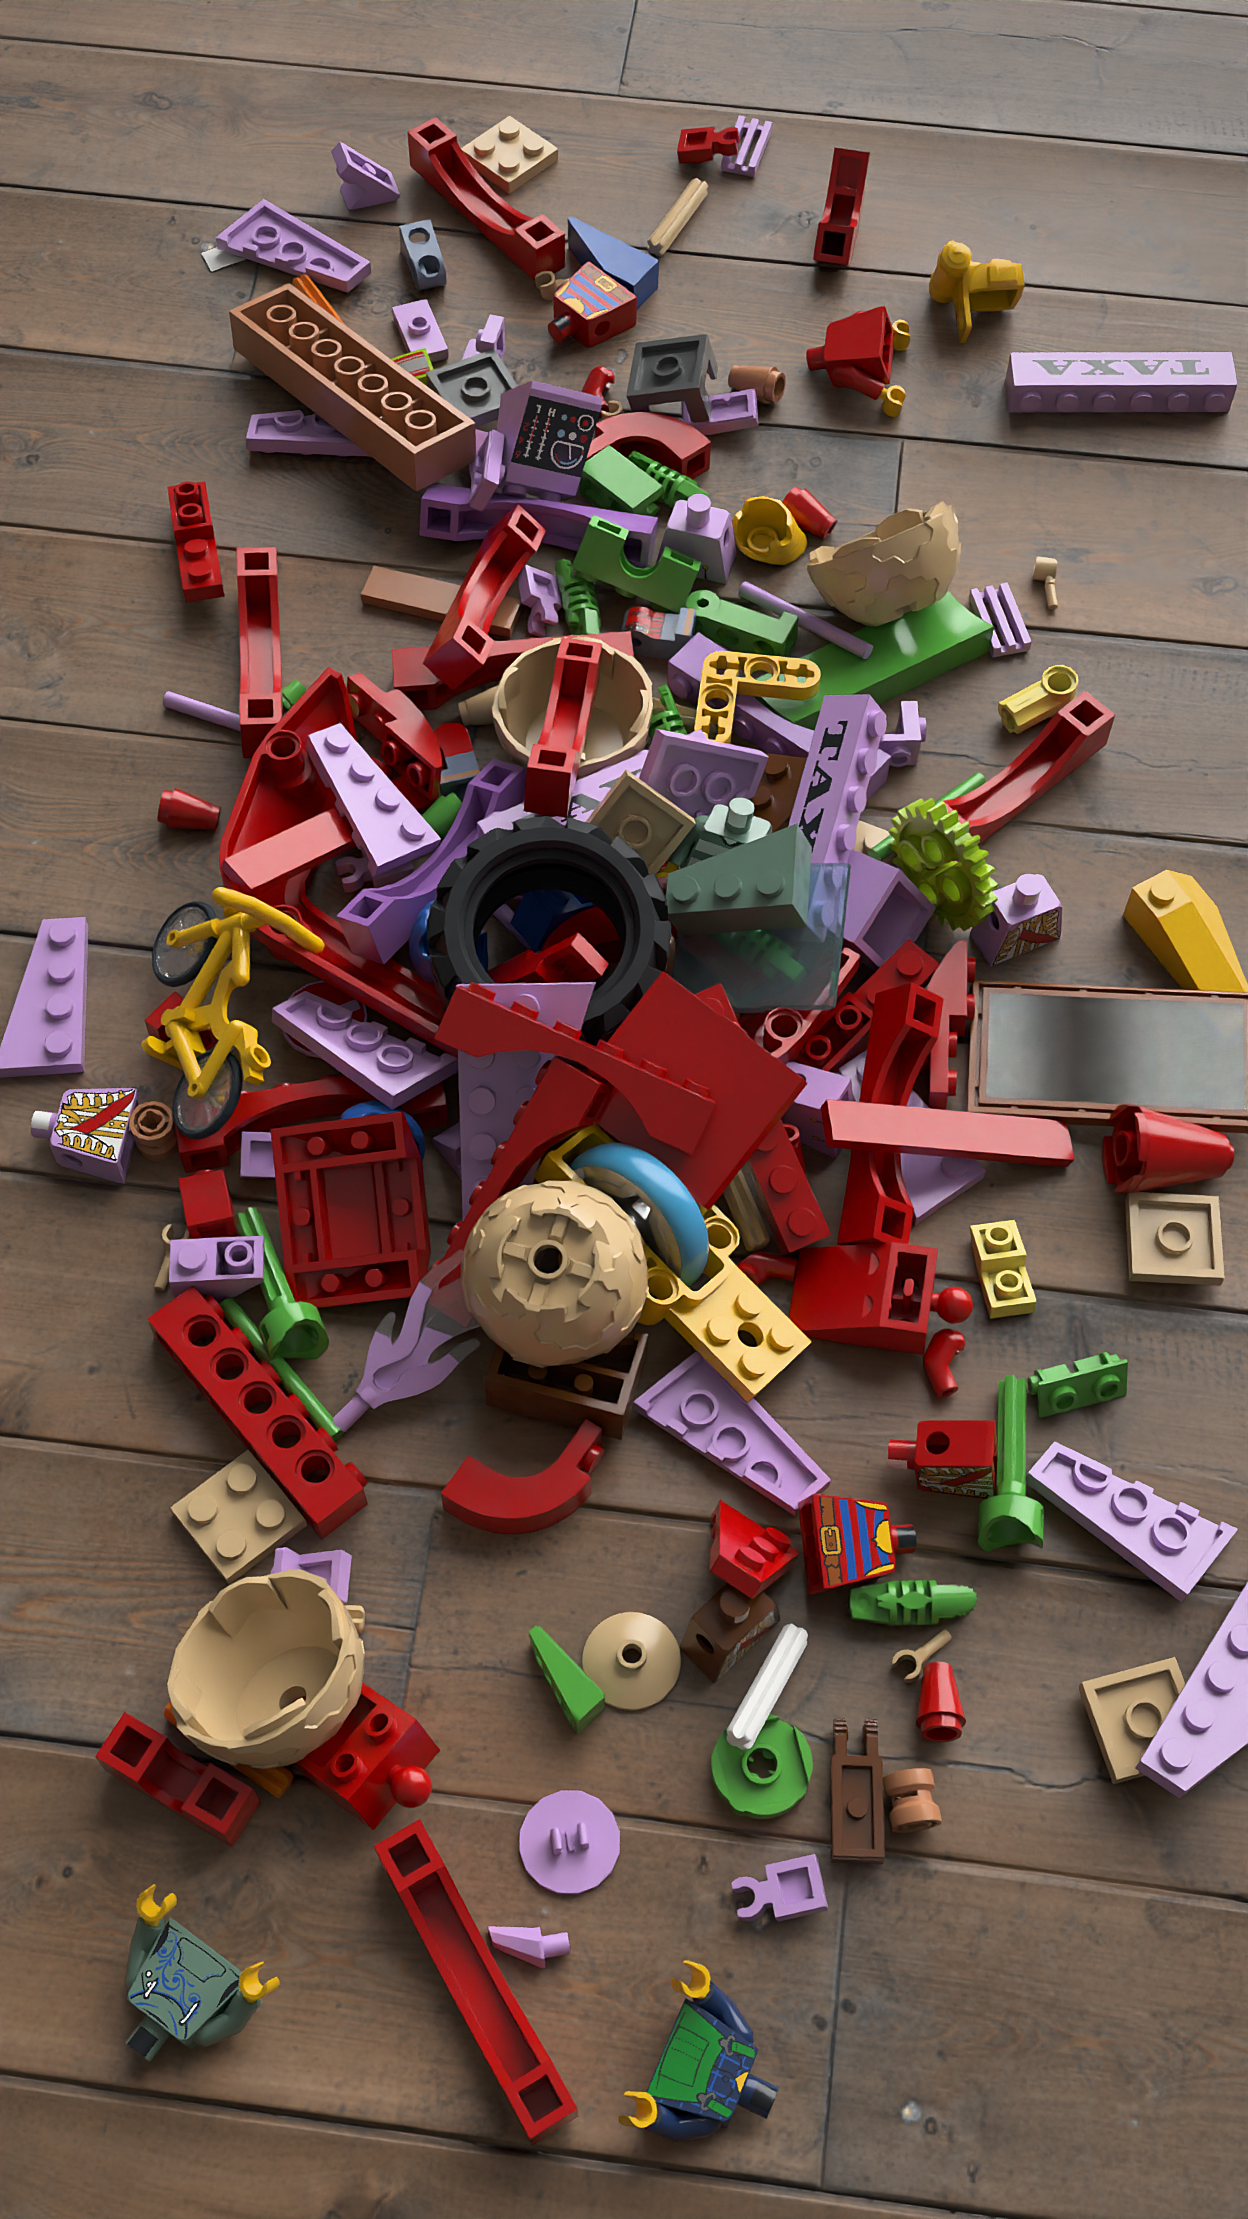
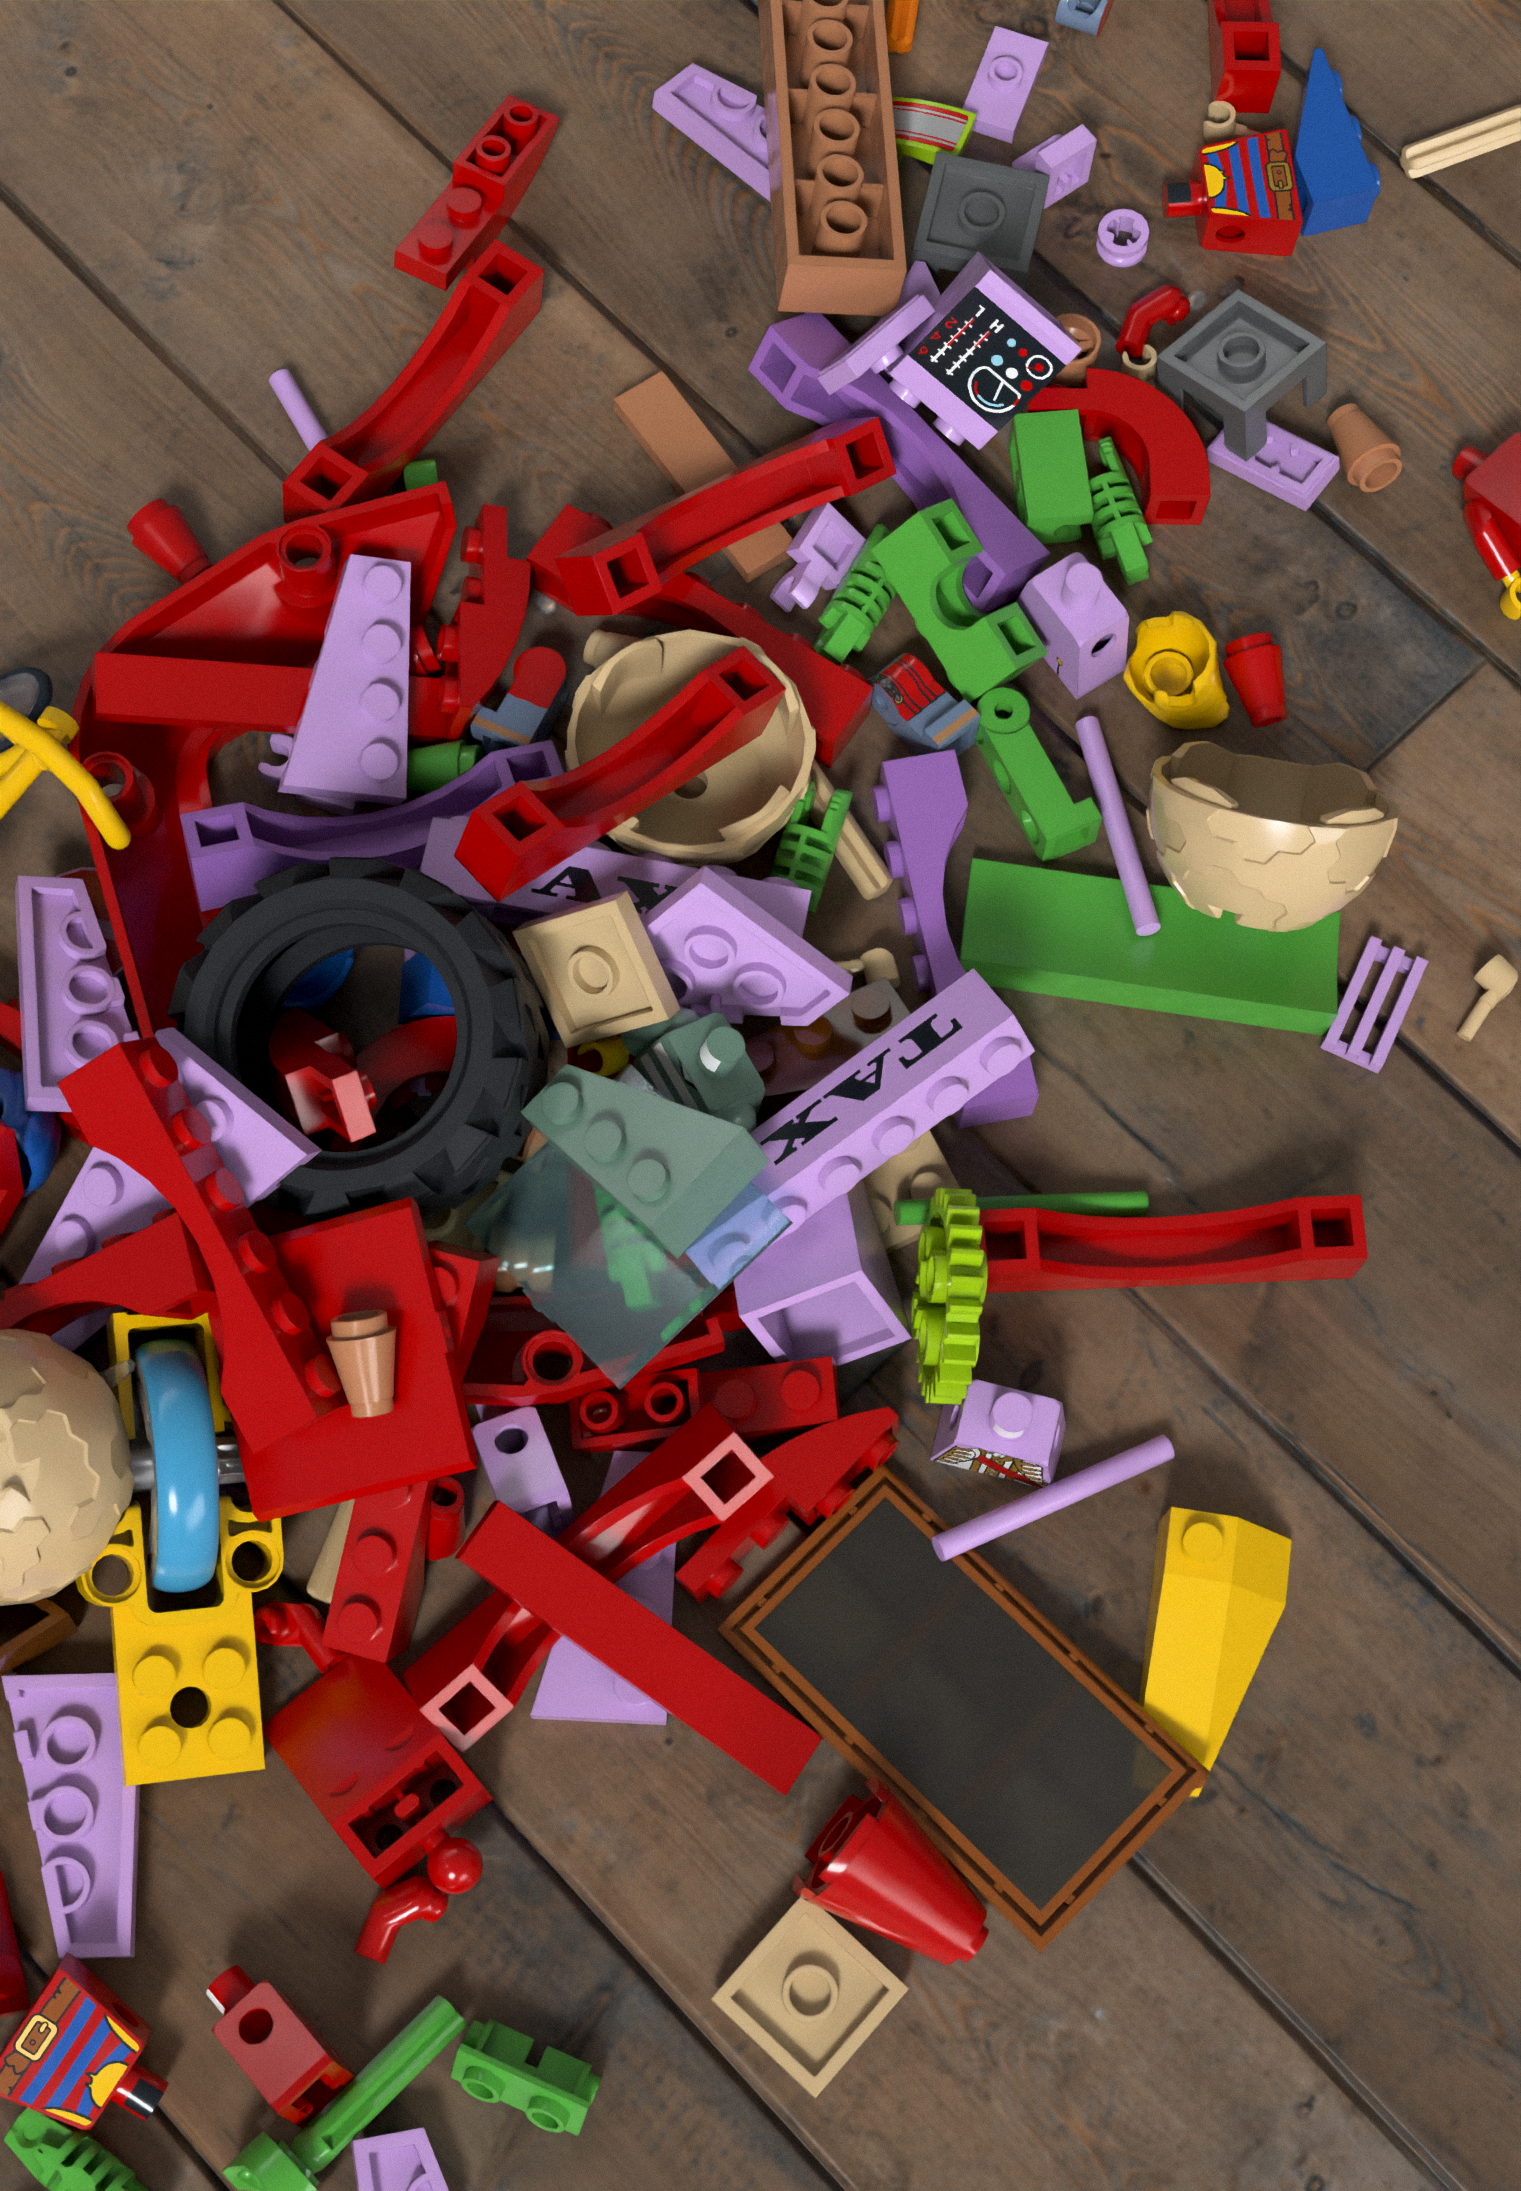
camera: 35 degrees right, 10 degrees up
(548, 355) = (1126, 221): none -> lavender bush
(710, 1066) = (365, 1360): none -> nougat cone
(729, 685) = (919, 852): yellow beam -> none
(911, 731) = (1108, 1077): lavender bracket -> none
(1002, 1269) = (573, 1860): light yellow slope -> none
(1039, 700) = (1306, 1156): light yellow piece -> none
(1068, 934) = (1052, 1497): none -> lavender bar

